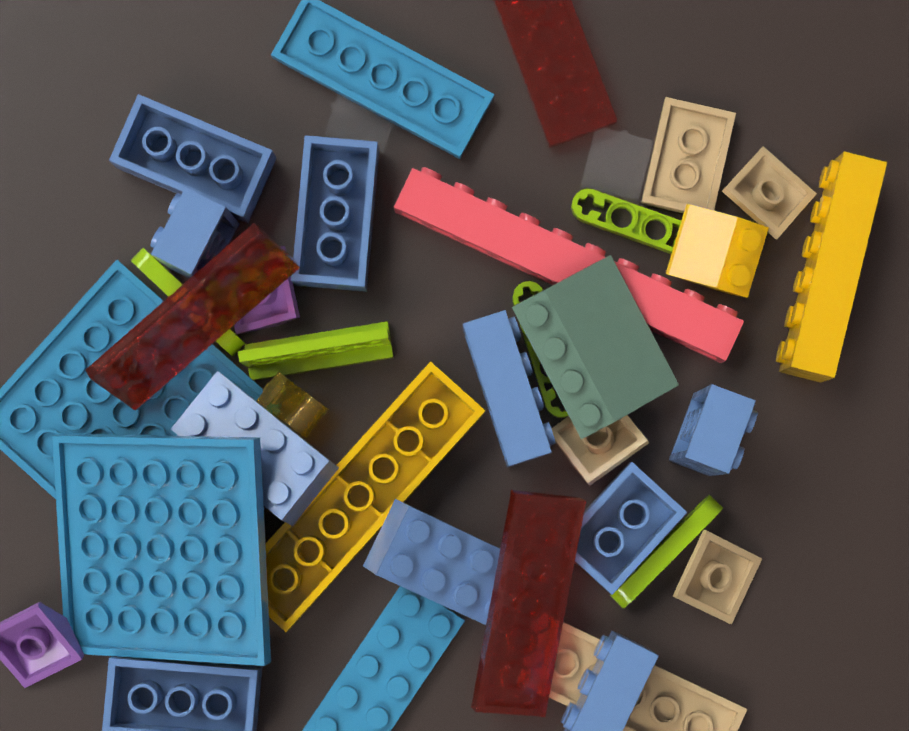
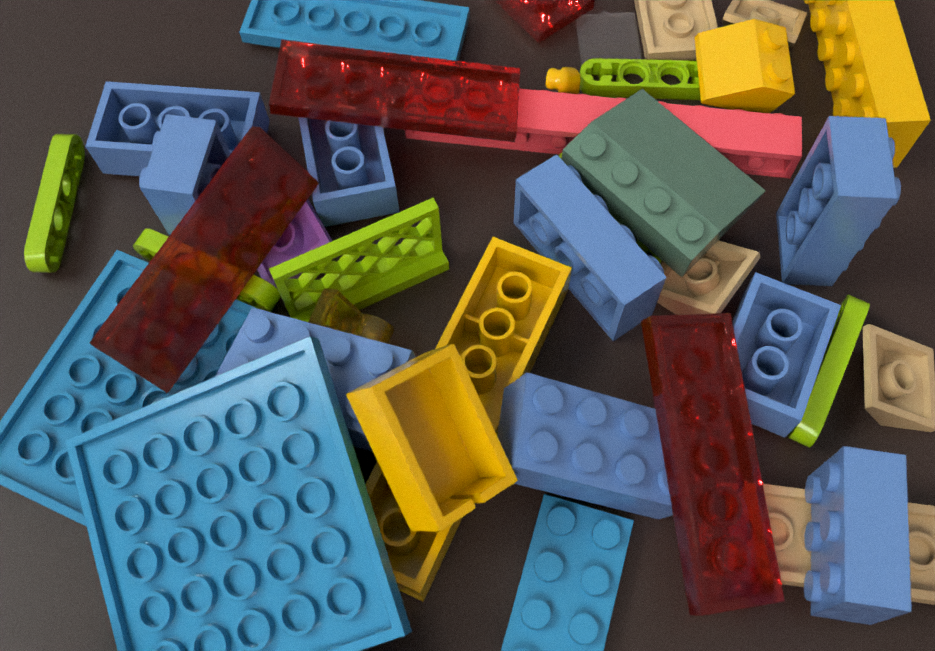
camera: 20 degrees left, 20 degrees down
(71, 190) = (54, 203): none -> lime beam
(321, 536) = (432, 439): none -> yellow piece
(391, 195) = (395, 91): none -> clear red plate
(551, 214) = (564, 80): none -> yellow arm

